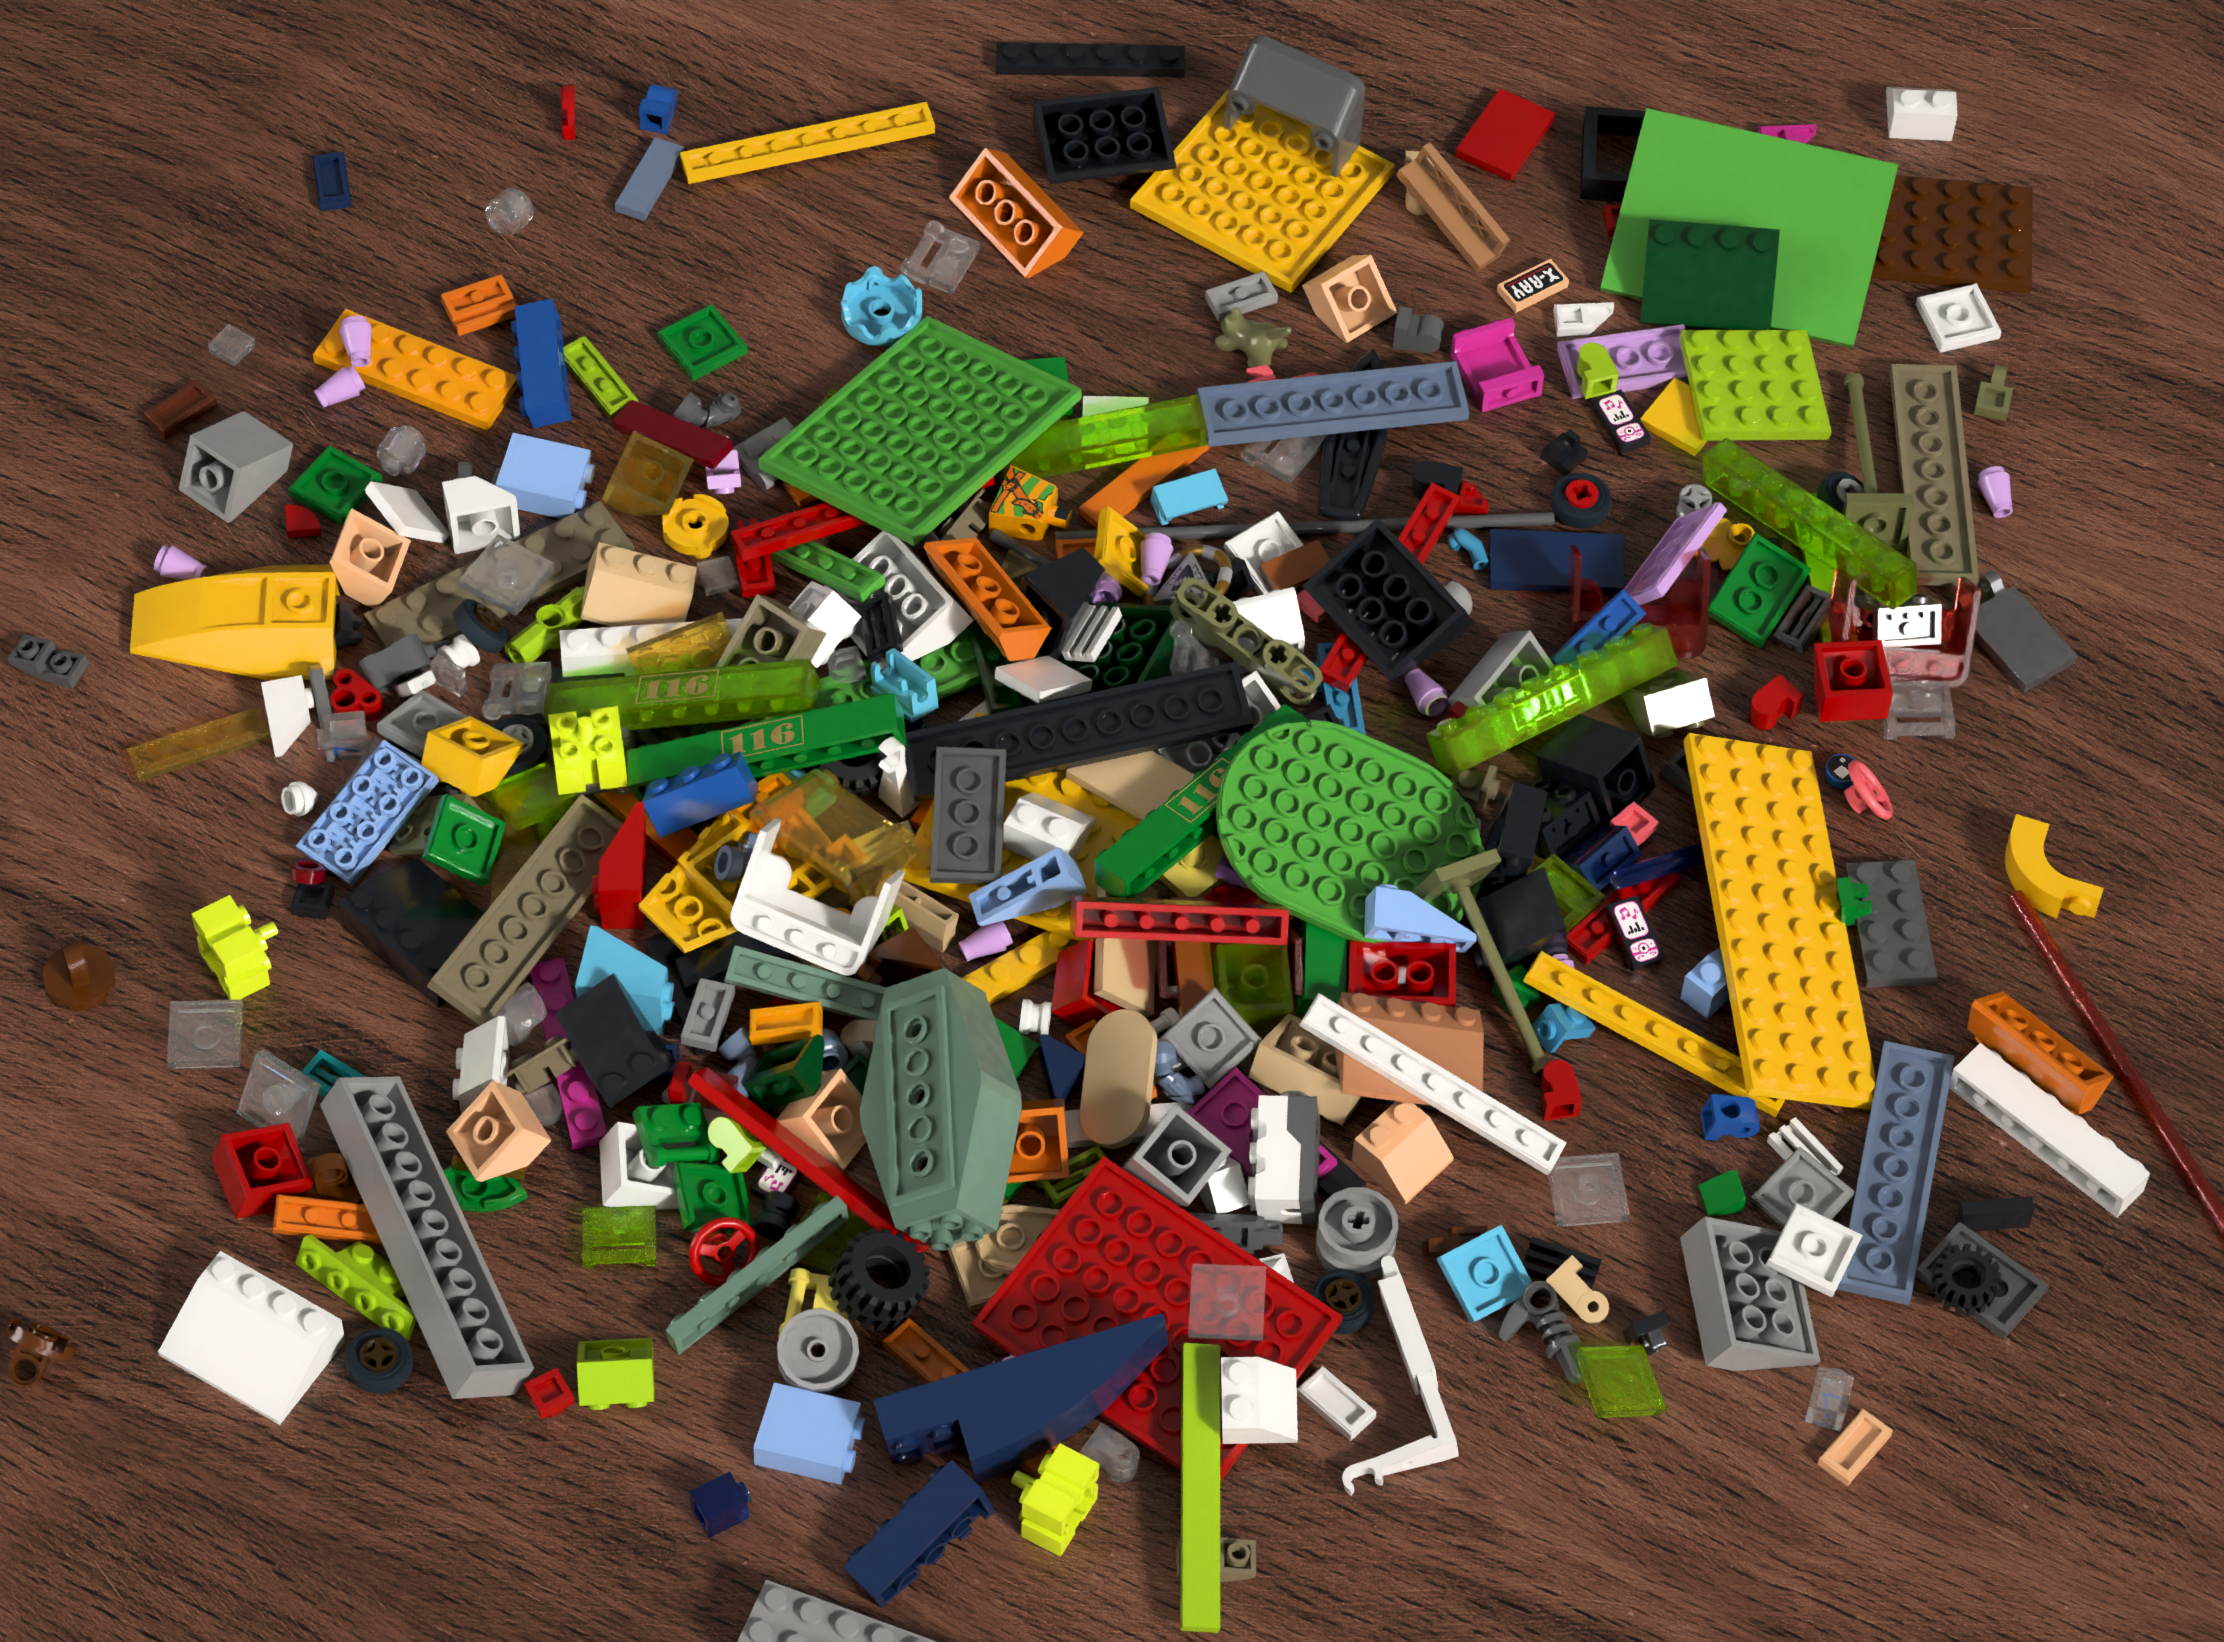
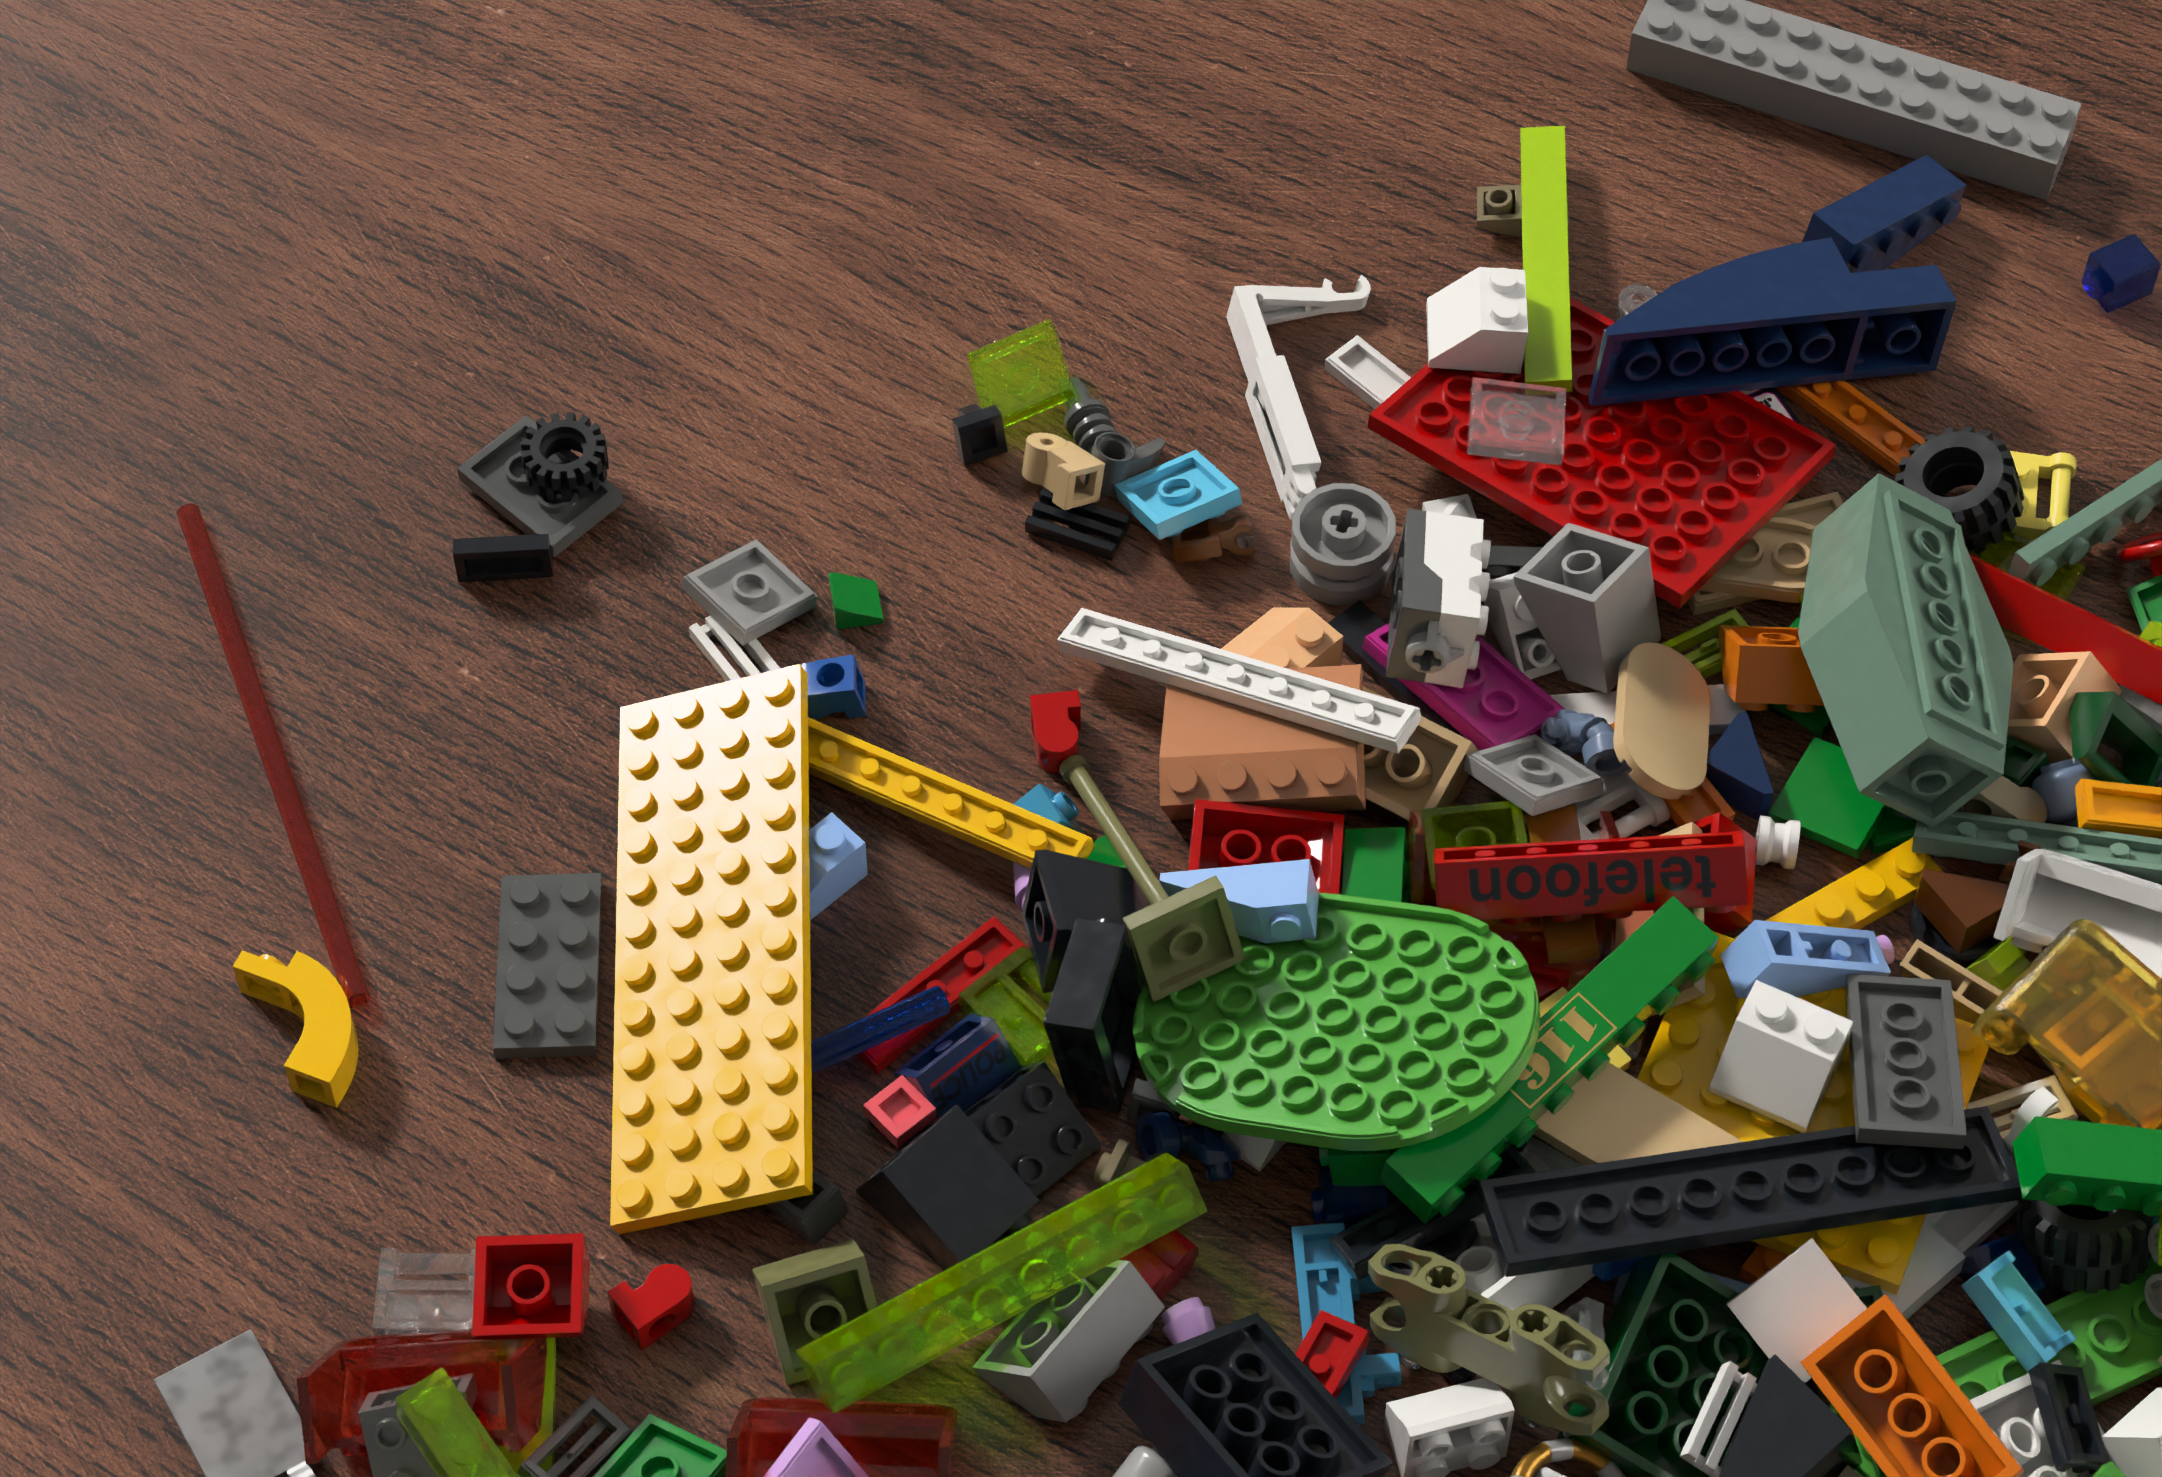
camera: 175 degrees left, 0 degrees up
(777, 1215) = (2101, 589): black wheel -> none
(809, 1434) = (2023, 344): light blue brick -> none
(819, 1330) = (2029, 405): light grey wheel -> none
(846, 665) = (2112, 1381): clear tile -> none
(1058, 1499) = (1718, 230): neon yellow brick -> none
(1352, 1291) = (1368, 463): black wheel -> none
(1588, 1190) = (1027, 613): clear plate -> none
(1611, 621) = (917, 1398): blue tile -> none
(1634, 933) = (923, 942): tile -> none
(1741, 1306) = (842, 468): light grey slope -> none
(1814, 1250) = (751, 503): white tile -> none
(1829, 1398) = (763, 352): clear brick -> none
(1837, 772) = (569, 1200): tile -> none
(1848, 896) = (607, 968): green tile -> none
(1855, 1447) = (740, 315): light nougat tile -> none
(1867, 791) = (546, 1142): coral piece -> none
(1897, 1171) = (616, 623): sand blue plate -> none
(2038, 1052) = (394, 733): orange slope -> none
(2049, 1129) = (403, 663): white brick -> none

